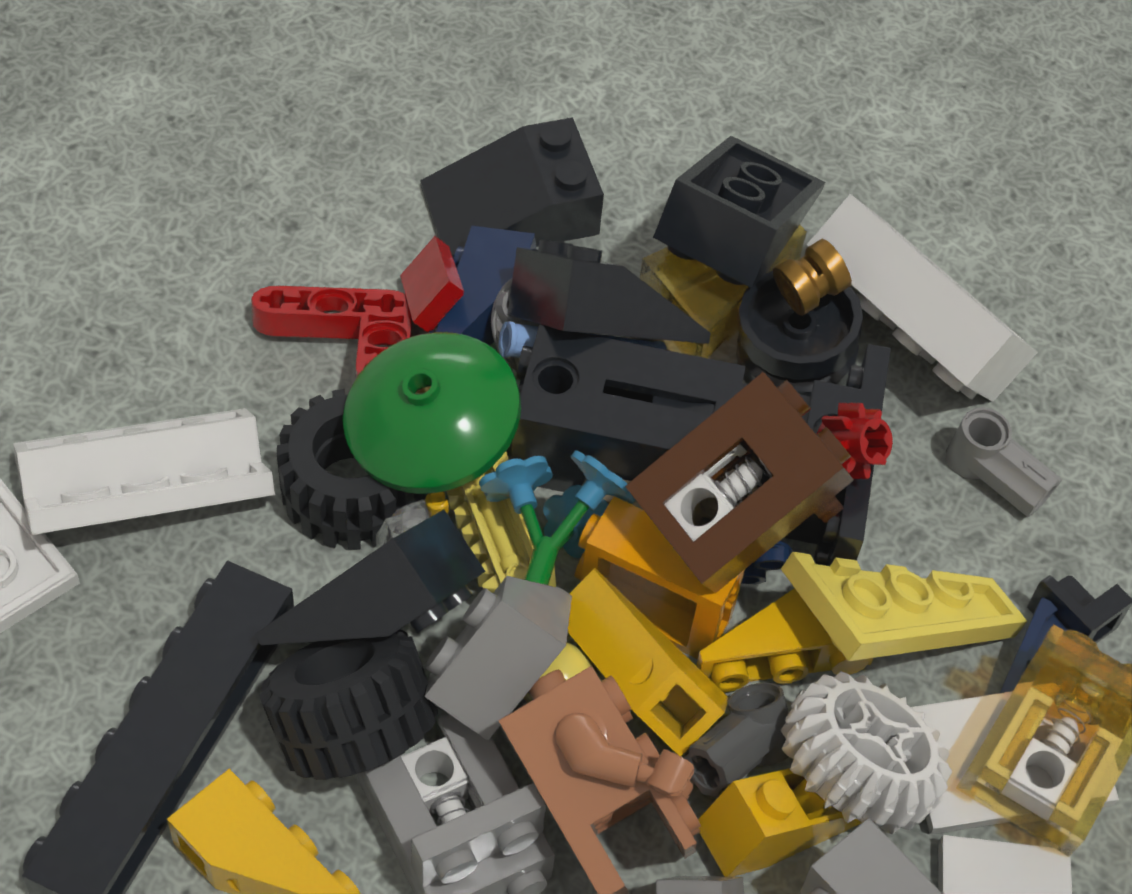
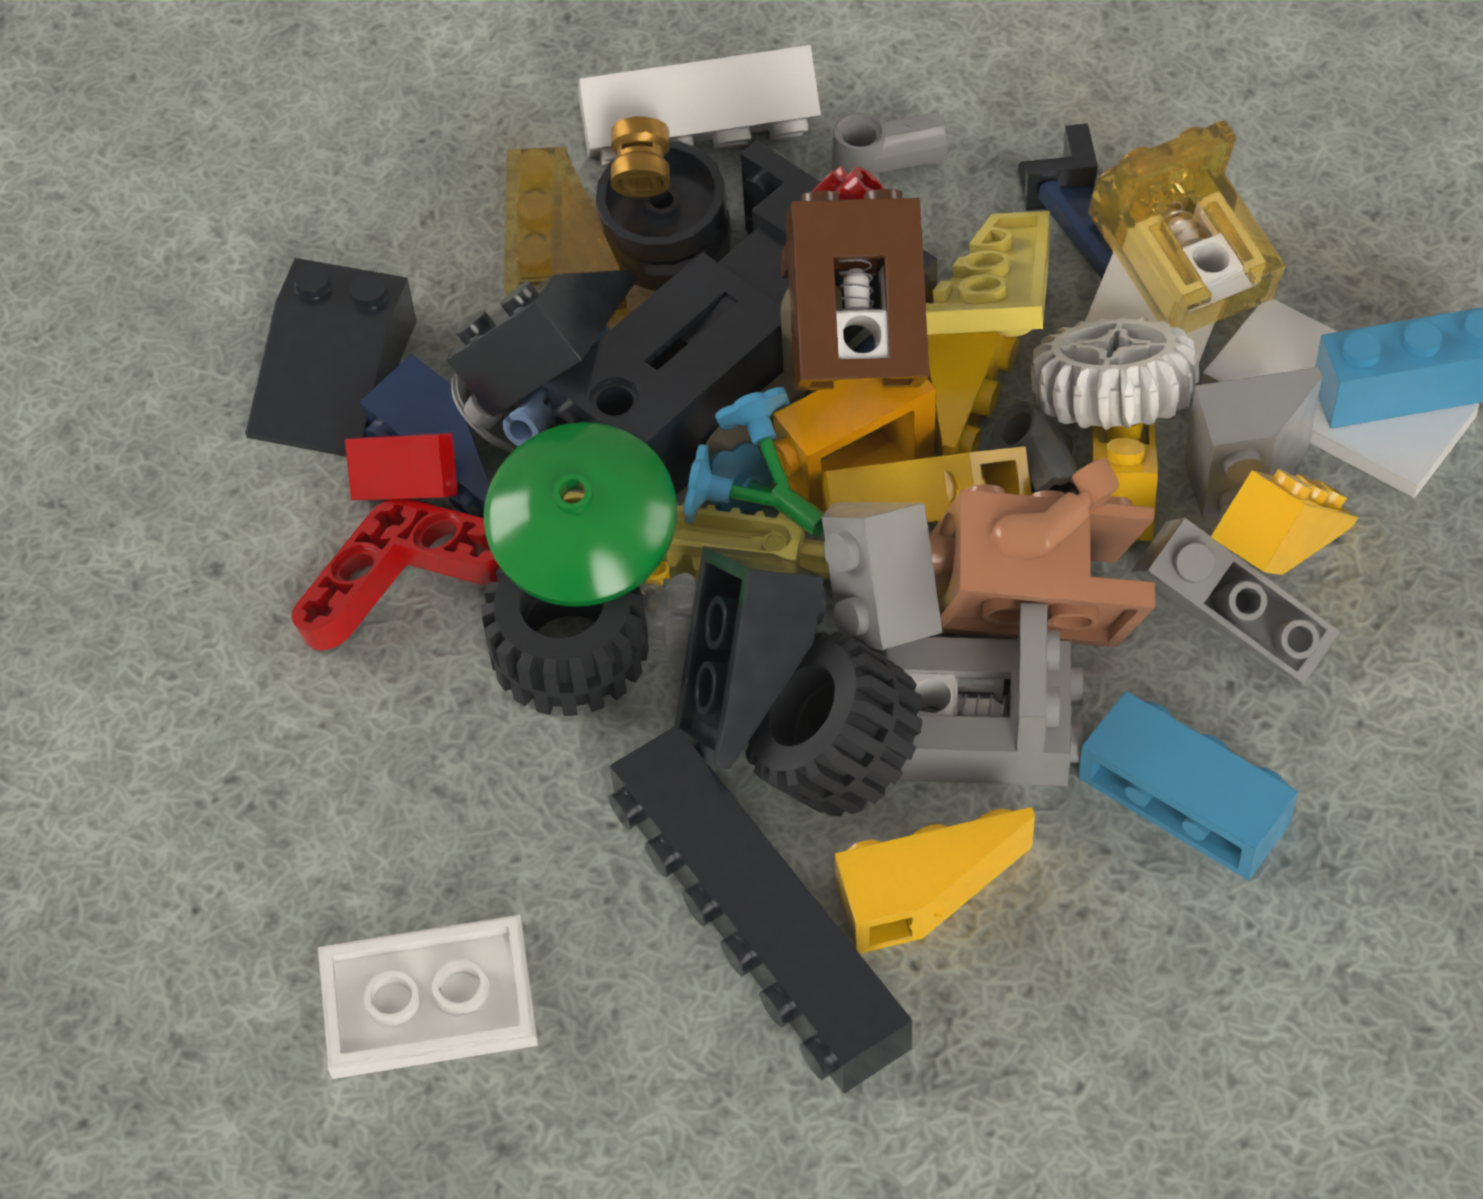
camera: 50 degrees left, 0 degrees up
(141, 470) = (442, 809): white slope -> none
(736, 210) = (526, 174): black slope -> none

